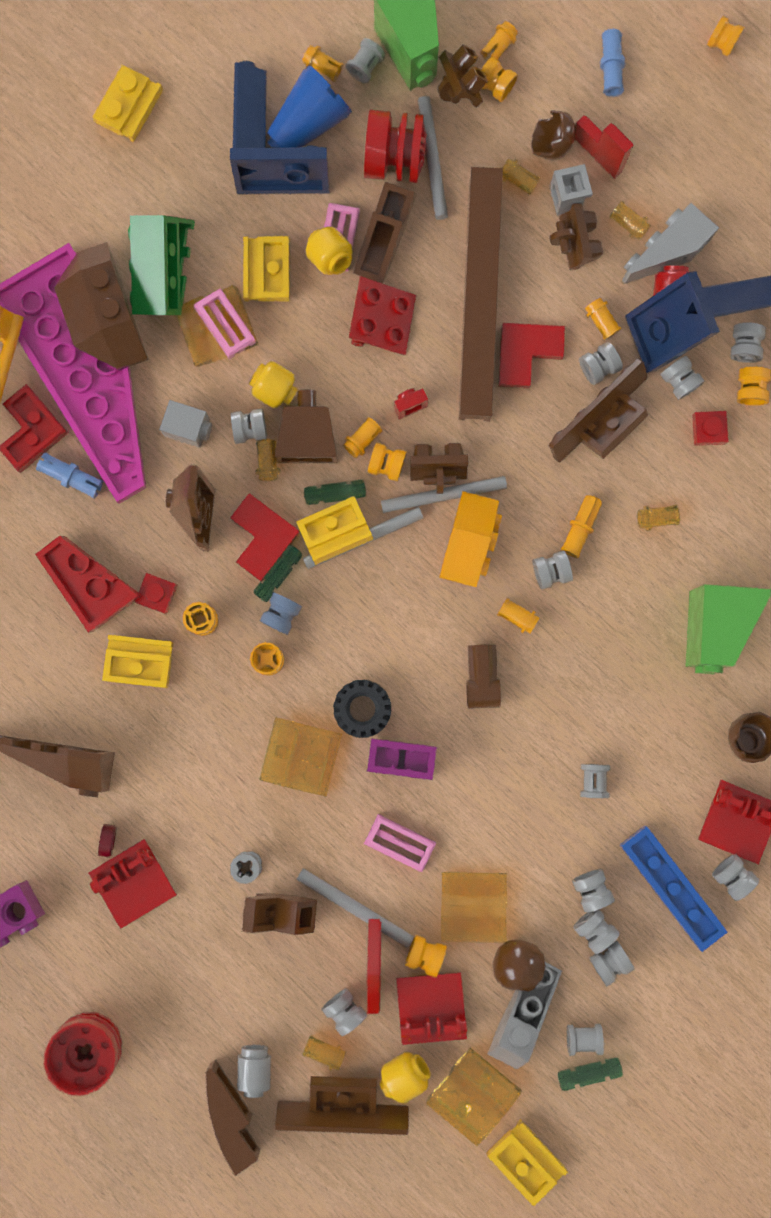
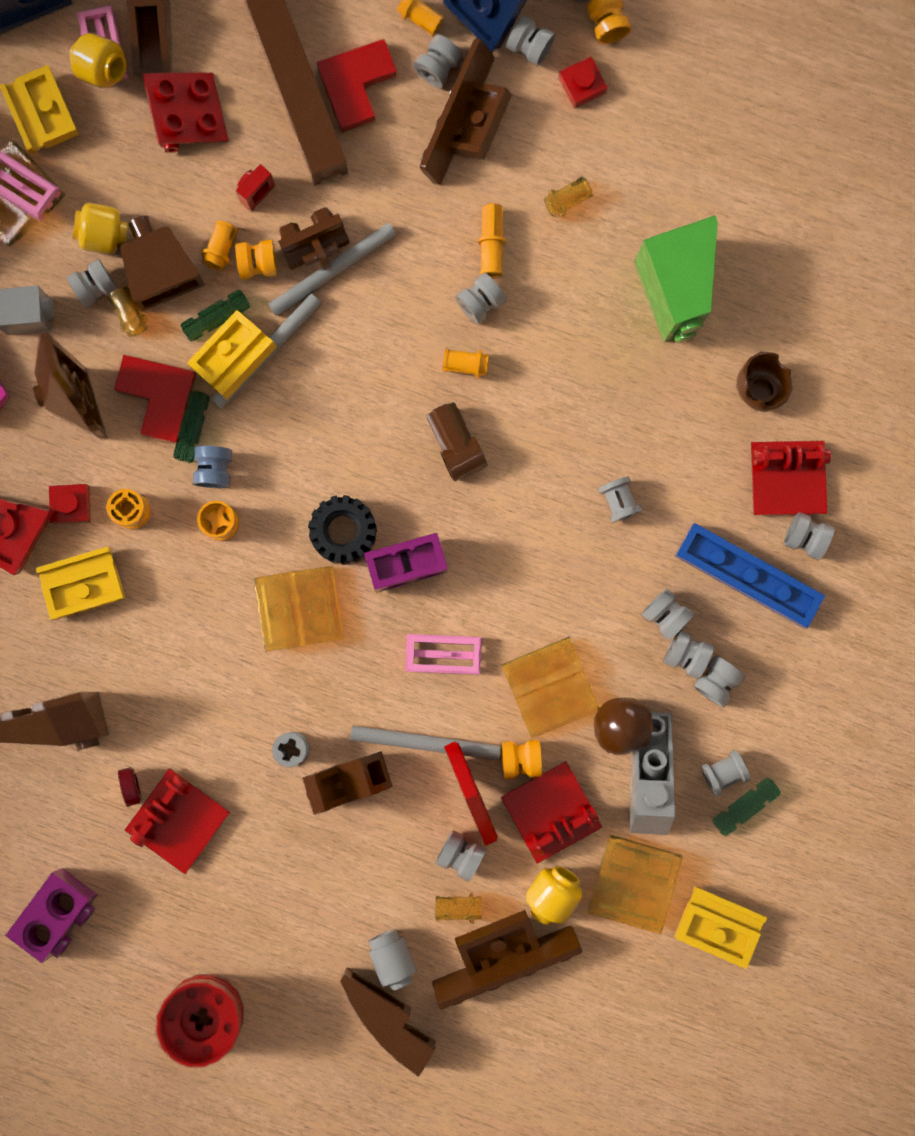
camera: 30 degrees left, 0 degrees up
(471, 537) = (379, 297): light orange brick -> none

